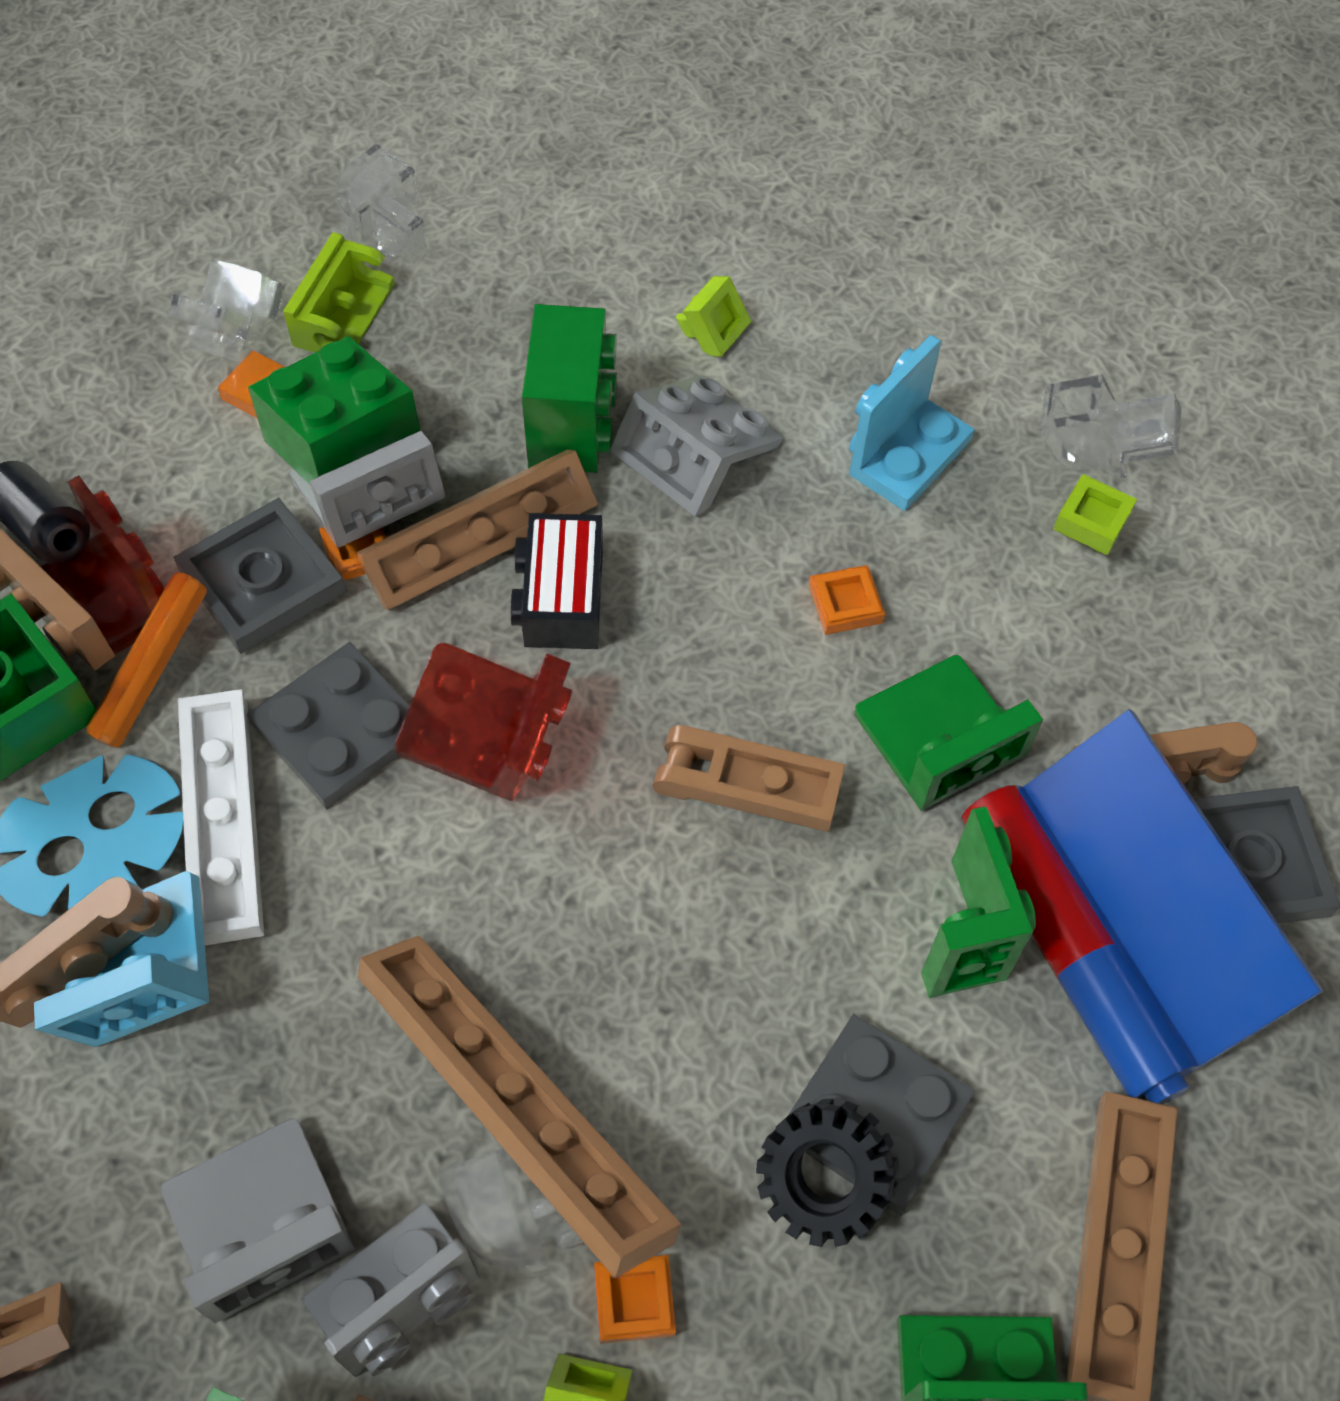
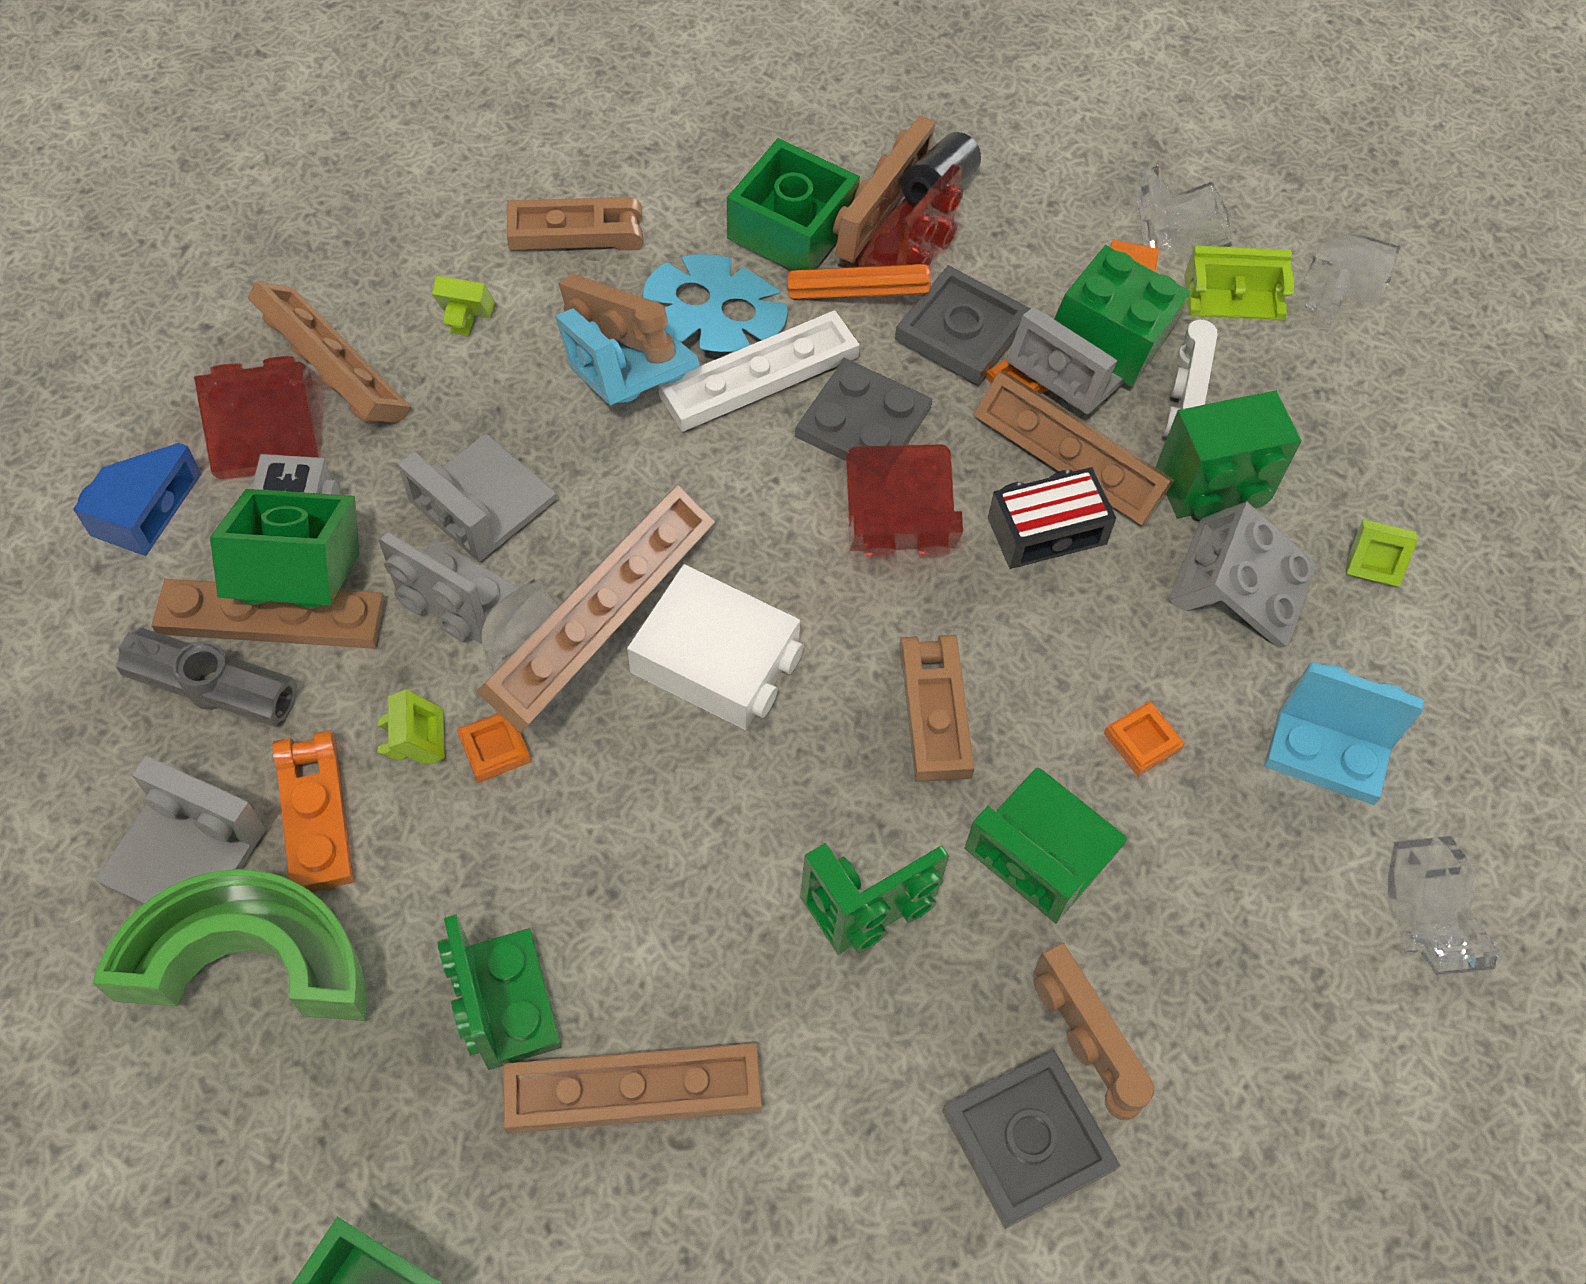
camera: 70 degrees right, 0 degrees up
(457, 391) = (1196, 360): none -> white plate
(600, 985) = (716, 647): none -> white brick
(797, 1203) = (633, 855): black tyre -> none
(901, 1089) = (686, 877): dark grey plate -> none
(1094, 514) = (1331, 919): lime tile -> none
(1145, 911) = (924, 1027): blue door -> none

